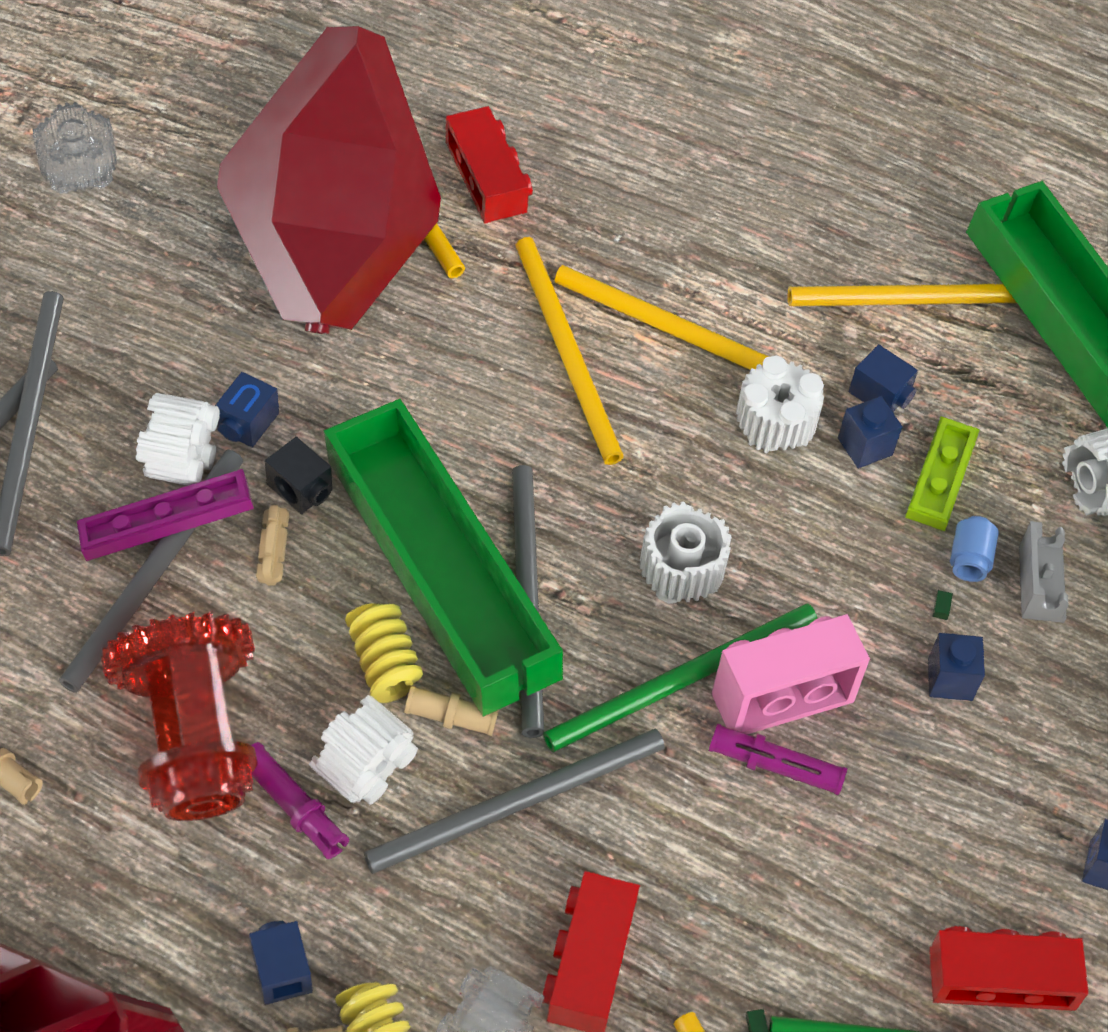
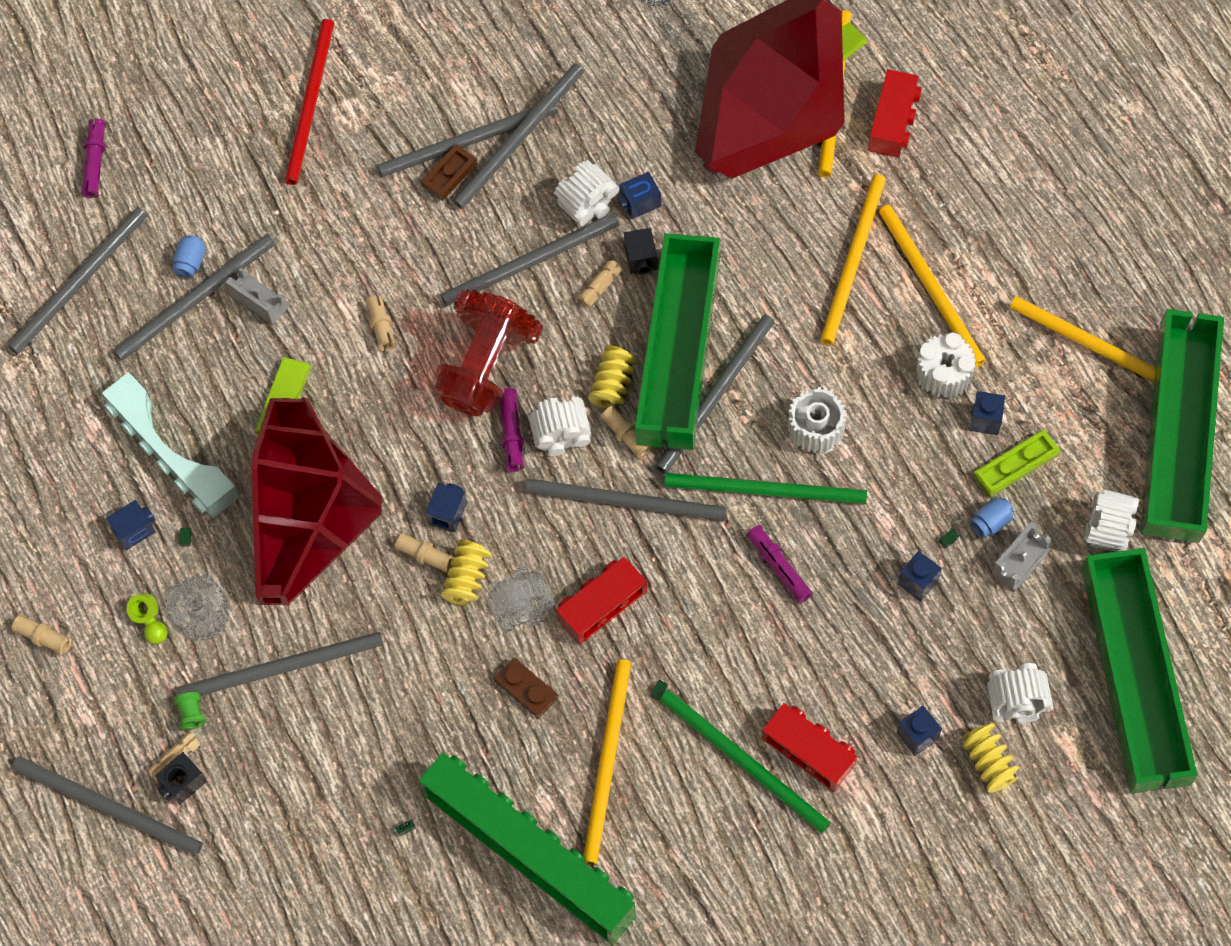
camera: 45 degrees right, 10 degrees up
(164, 515) = (553, 233): magenta tile -> none
(789, 674) = (815, 522): bright pink brick -> none
(885, 376) = (1024, 387): dark blue brick -> none

